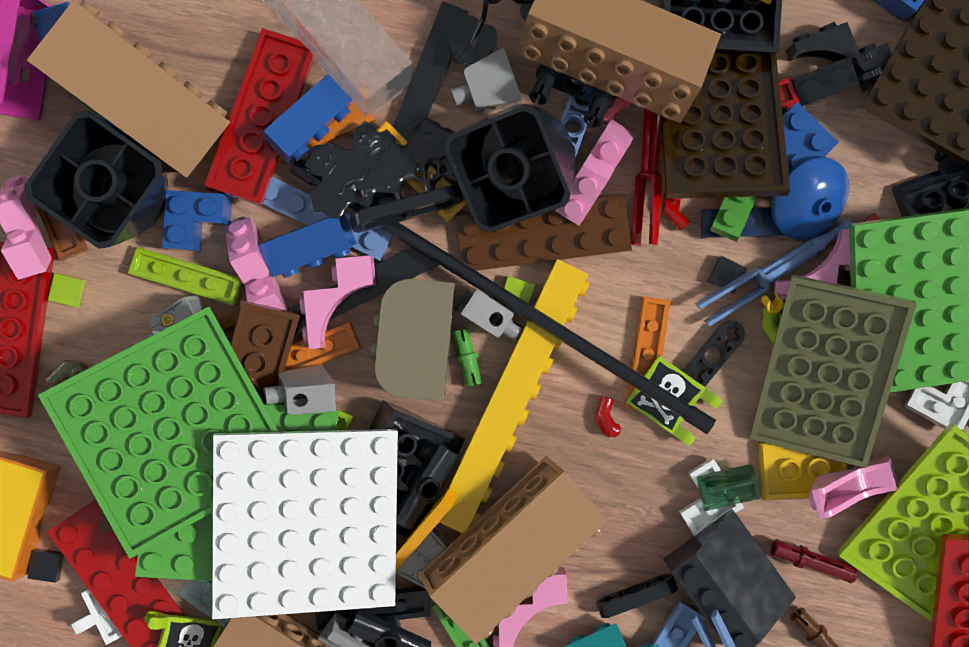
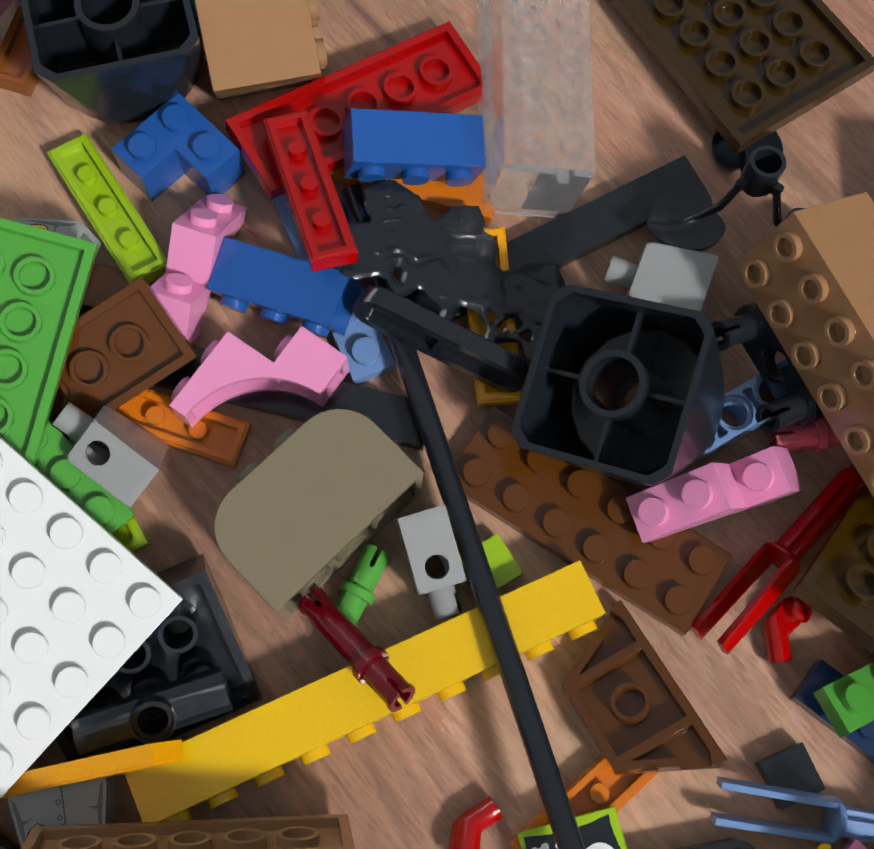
camera: 35 degrees right, 15 degrees down
(280, 189) = (310, 191): none -> red tile
(499, 386) = (368, 661): none -> dark red pin
(632, 302) = (636, 704): none -> reddish brown wing

